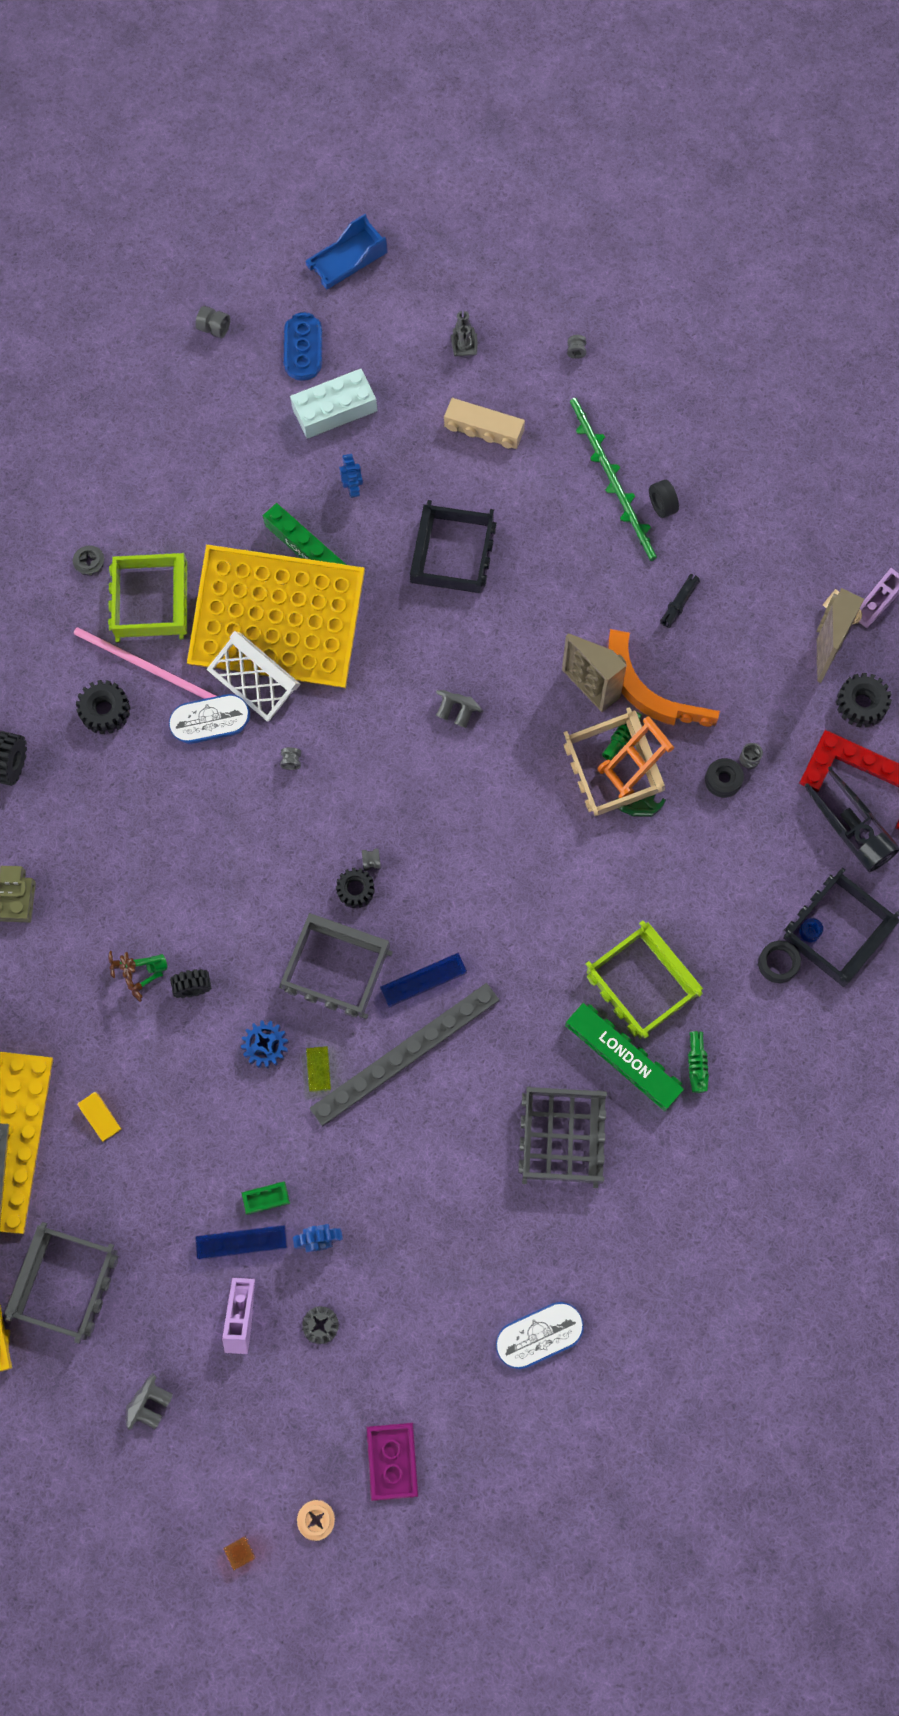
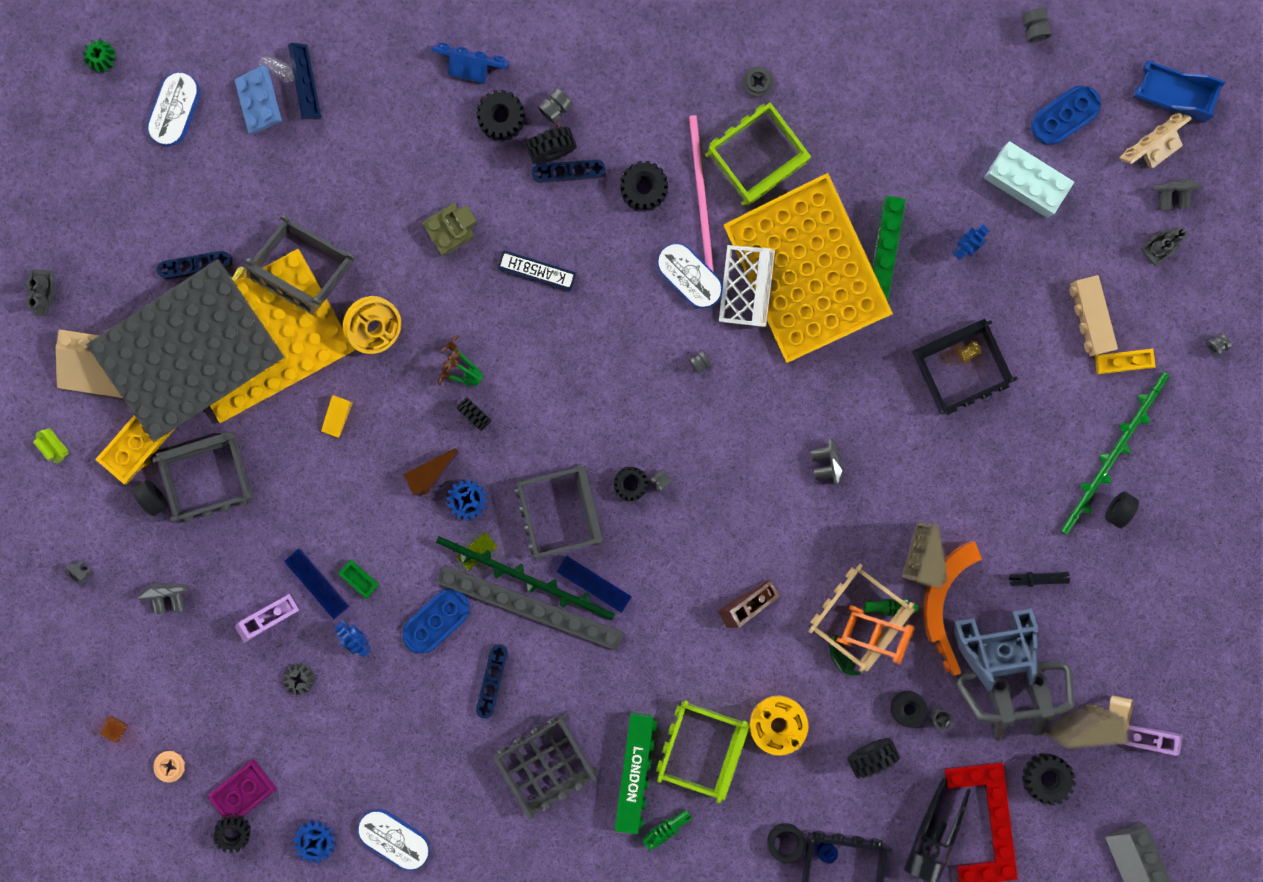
camera: 50 degrees right, 15 degrees up
(27, 1029) = (379, 310): none -> yellow piece
(41, 1350) = (150, 498): none -> black tyre
(43, 764) = (568, 168): none -> dark blue beam
(60, 1482) = (78, 575): none -> dark grey tile
(106, 847) = (537, 270): none -> tile
(214, 1067) = (428, 474): none -> reddish brown slope
(357, 1151) = (436, 621): none -> blue tile
(365, 1041) = (518, 573): none -> dark green plant
(379, 293) = (1159, 143): none -> tan bracket
(411, 1497) = (231, 843): none -> black tyre
(428, 295) = (1182, 185): none -> dark grey connector
(443, 536) = (969, 352): none -> clear yellow bush
(451, 1133) = (490, 680): none -> dark blue beam
(478, 1417) = (309, 835): none -> blue gear
(537, 855) = (748, 605): none -> reddish brown slope
(540, 424) = (1125, 361): none -> yellow tile
(682, 893) = (790, 736): none -> yellow piece
(720, 666) = (1000, 652): none -> sand blue wedge
(747, 831) = (873, 758): none -> black tyre
(764, 689) = (1002, 702): none -> dark grey piece

